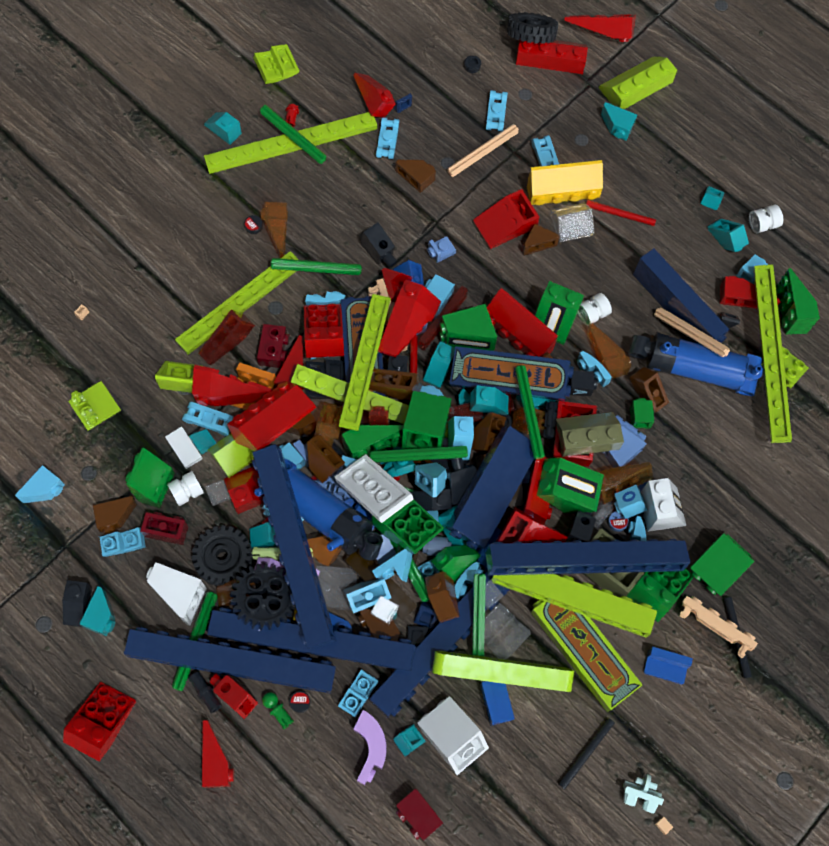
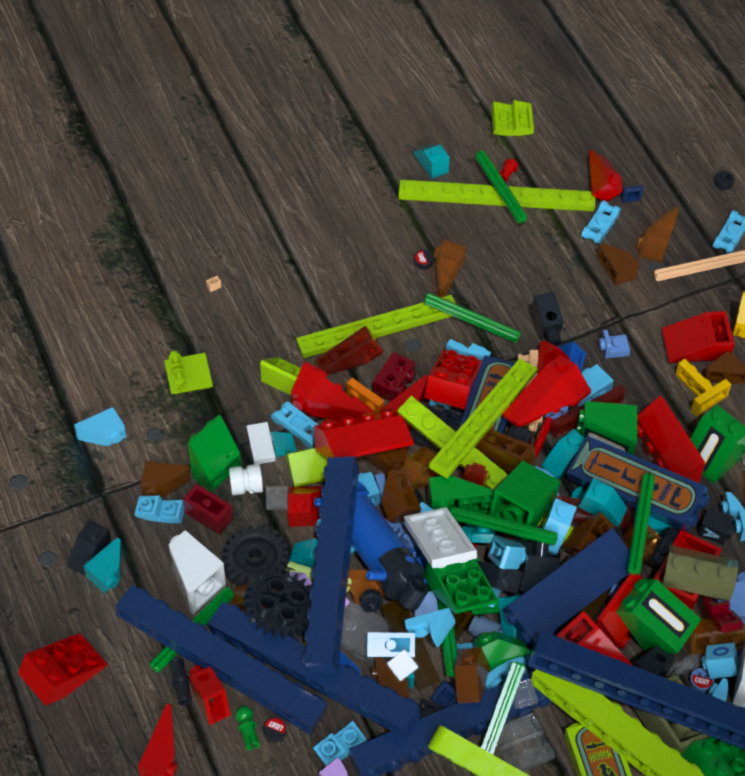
camera: 25 degrees right, 15 degrees down
(335, 560) = (371, 600): none -> black tile
(439, 137) = (657, 237): none -> clear orange slope
(524, 263) = (706, 394): none -> yellow bracket
(619, 464) = (722, 616): none -> dark red slope

